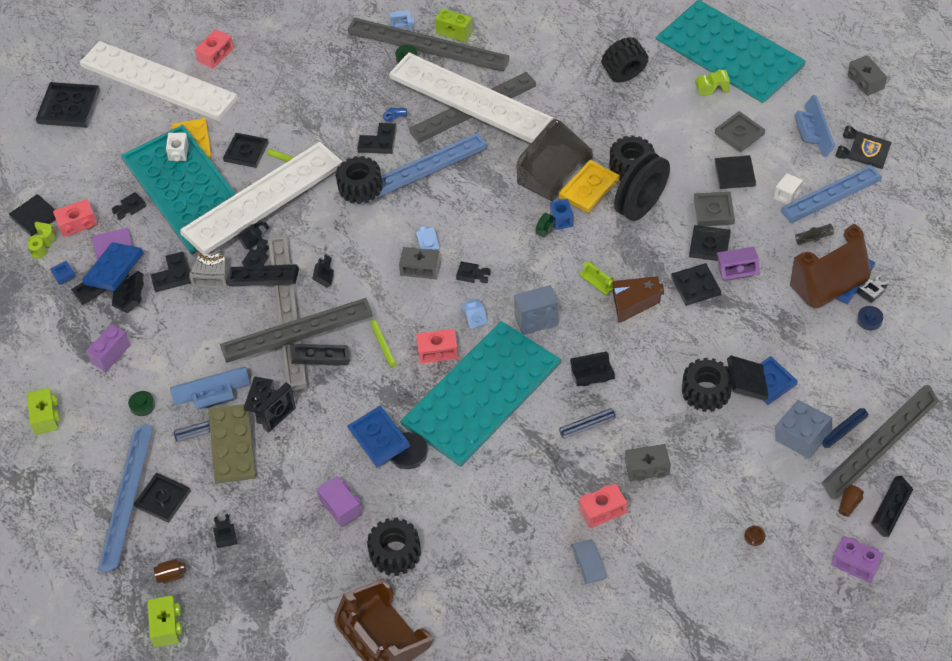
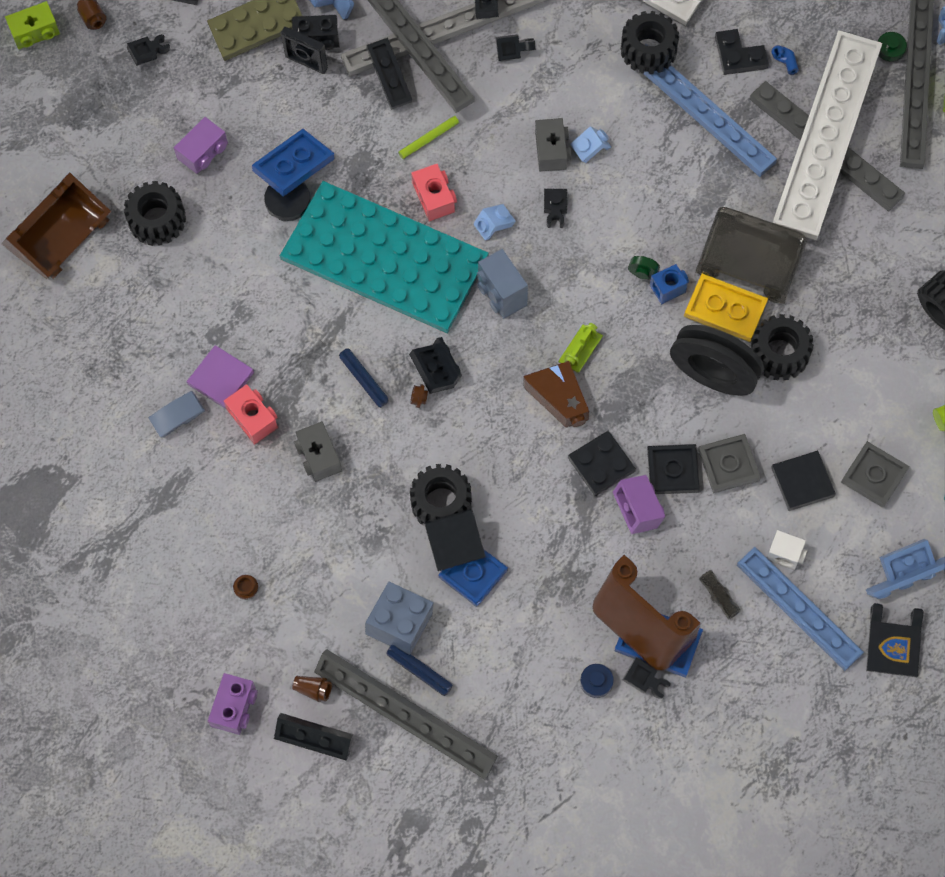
camera: 75 degrees right, 15 degrees up
(560, 526) = (219, 376): none -> medium lavender tile
(614, 386) = (418, 395): none -> reddish brown plate

